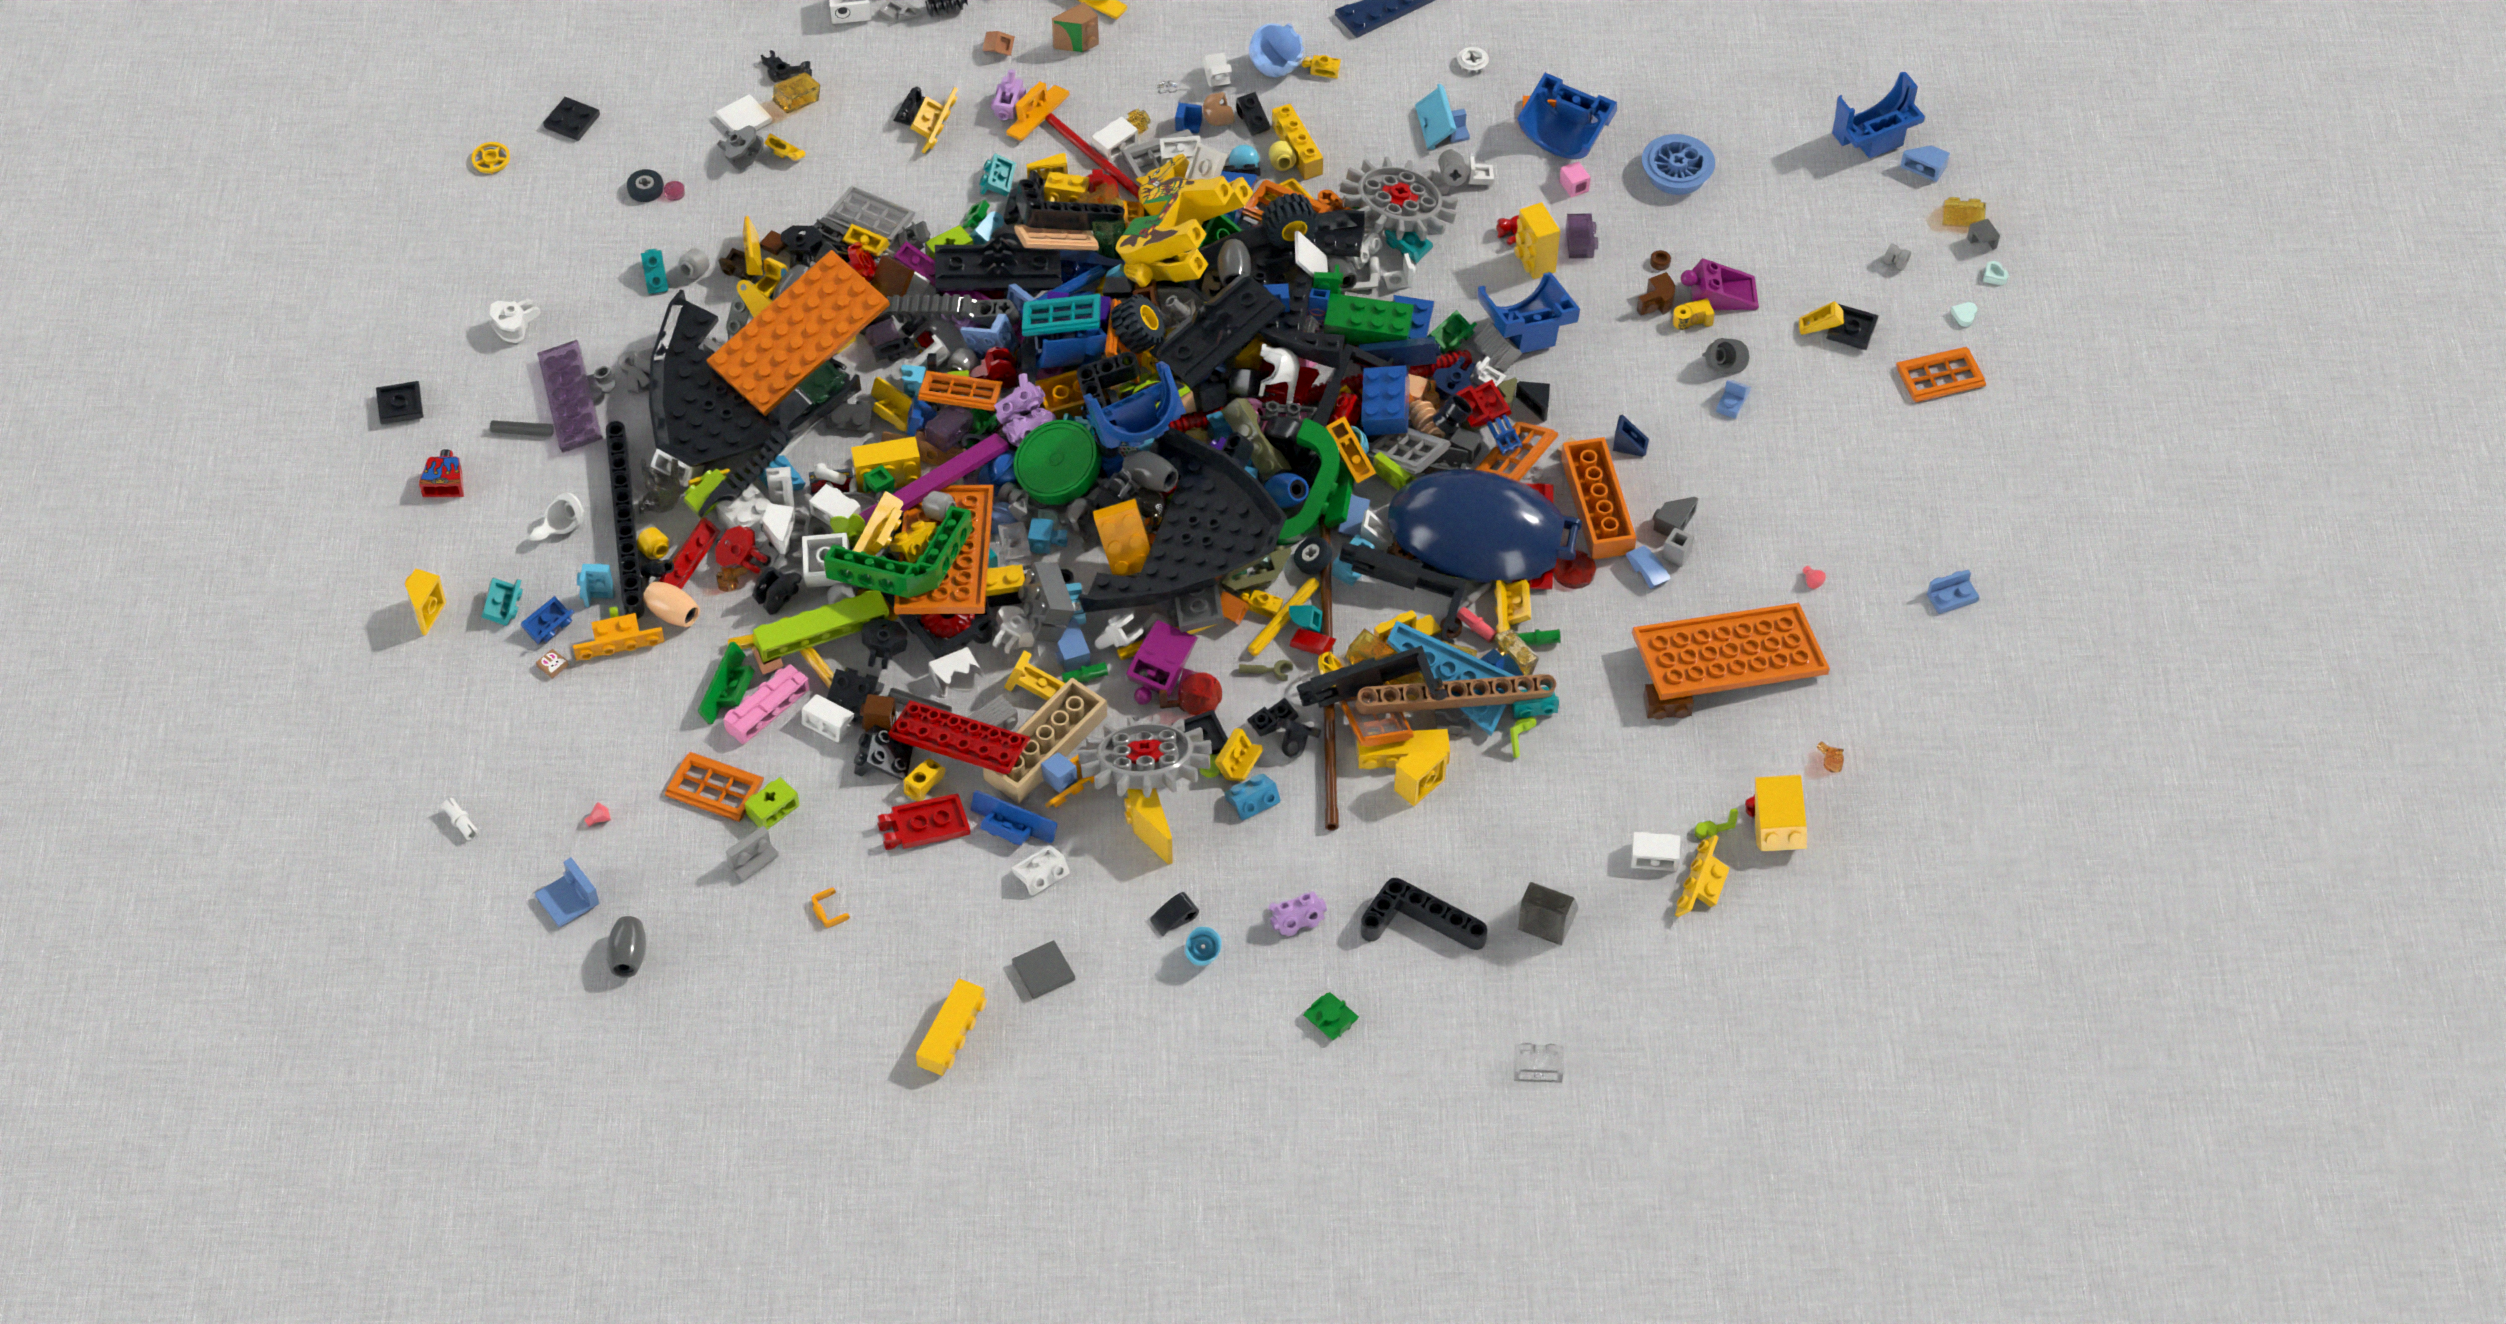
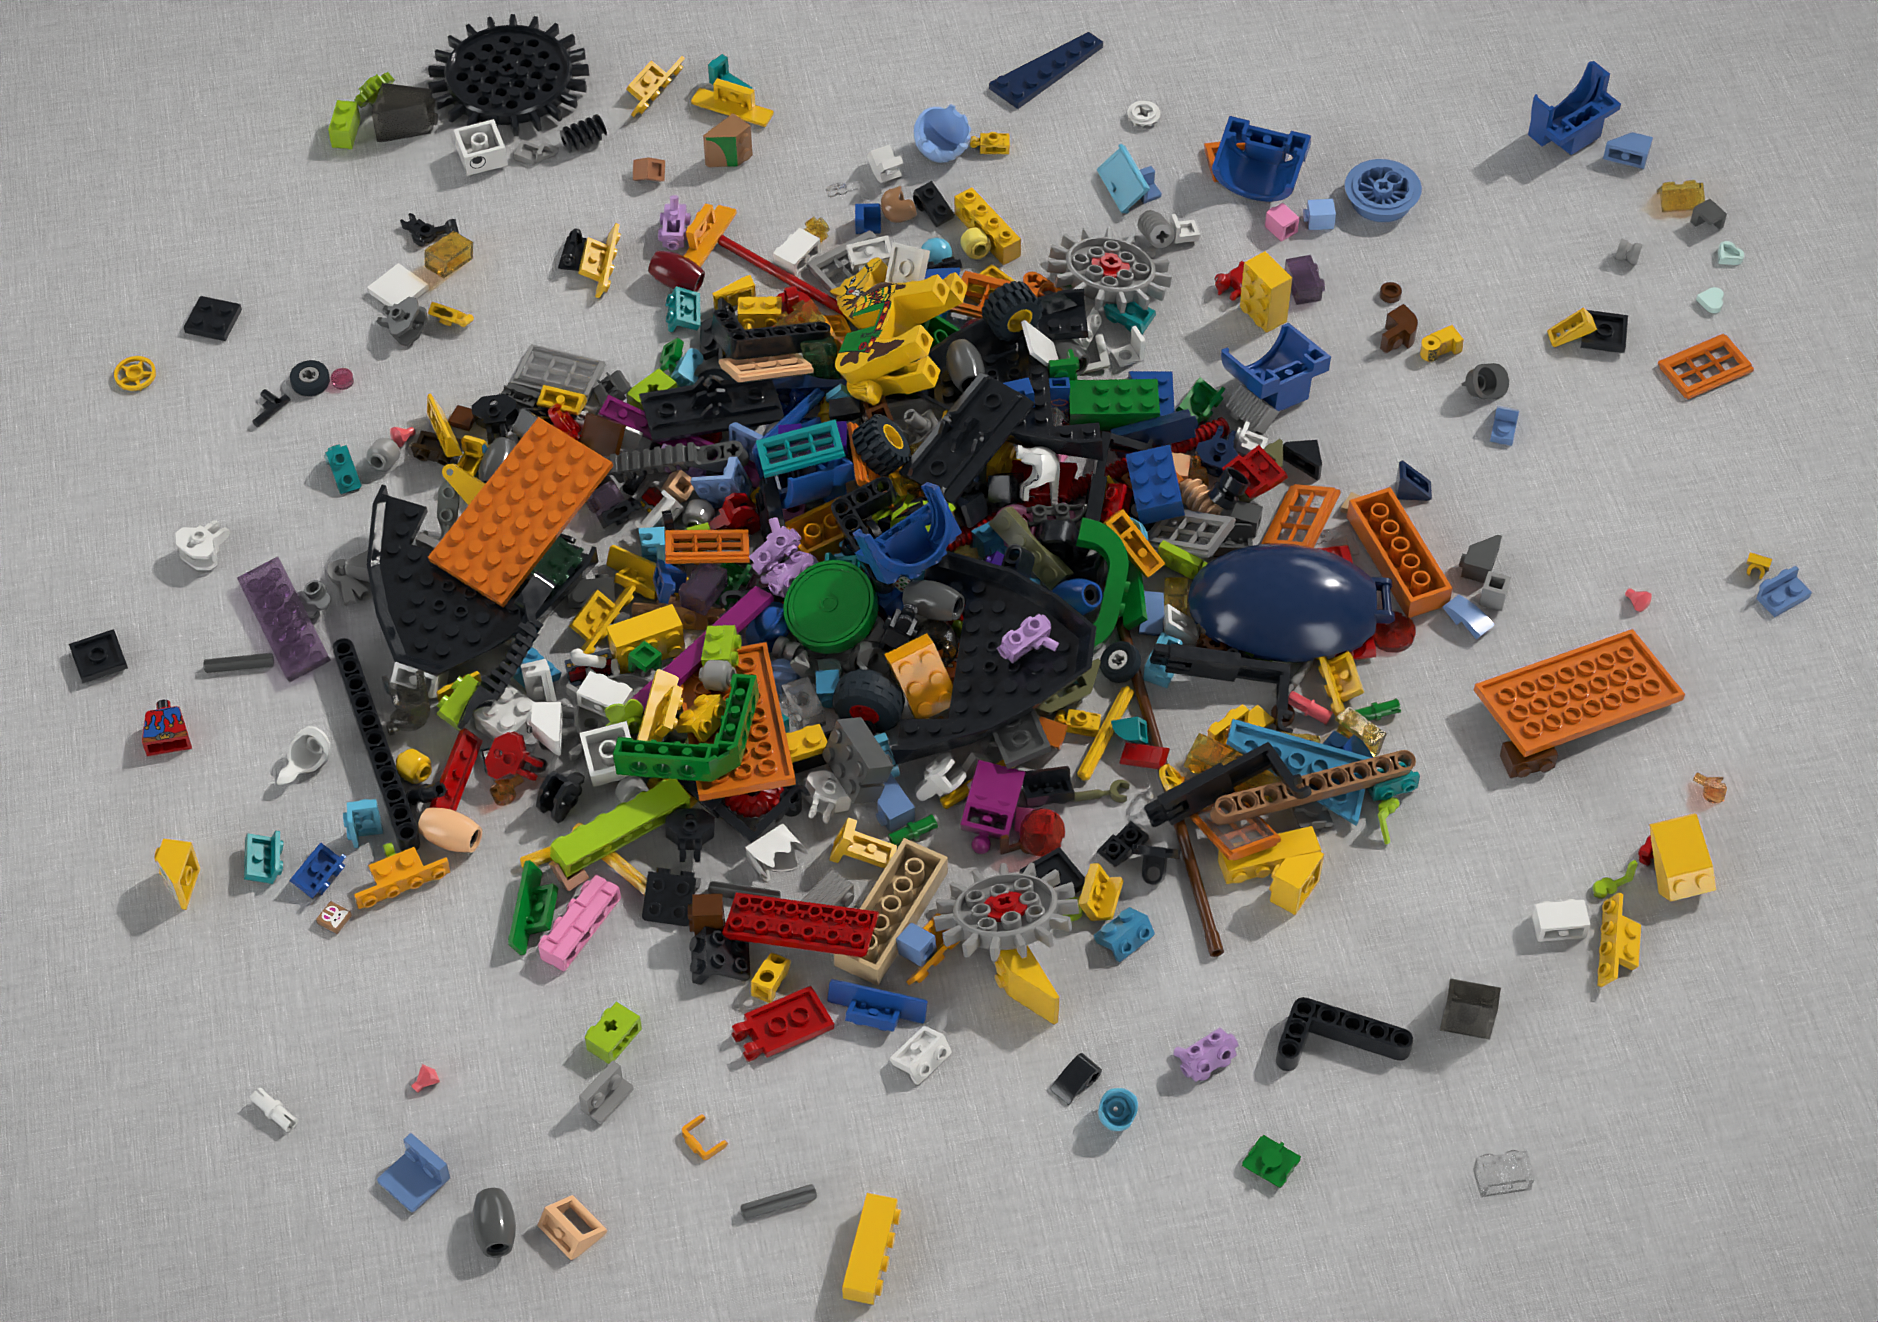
camera: 10 degrees left, 0 degrees up
(605, 205) = (270, 405): none -> black hose
(685, 966) = (564, 1233): none -> light nougat tile
(713, 249) = (400, 435): none -> coral rock
(719, 768) = (540, 1044): orange piece -> none
(827, 718) = (649, 927): white hinge -> none
(848, 435) = (597, 615): none -> yellow bracket
(881, 973) = (778, 1201): none -> dark grey axle
(950, 333) = (678, 486): none -> light nougat brick
(950, 479) = (721, 644): none -> lime bracket
(999, 139) = (676, 270): none -> dark red piece
(1043, 969) = (951, 1165): dark grey tile -> none
(1073, 549) = (870, 697): none -> black wheel
(1217, 654) = (1048, 786): none -> black bracket
(1227, 514) = (1032, 634): none -> lavender brick
(1381, 501) = (1176, 593): none -> clear yellow slope
(1505, 436) = (1285, 501): blue arm -> none
(1612, 177) = (1320, 214): none -> light blue brick
(1722, 286) = (1463, 308): magenta slope -> none
(1935, 561) = (1759, 562): none -> yellow tile

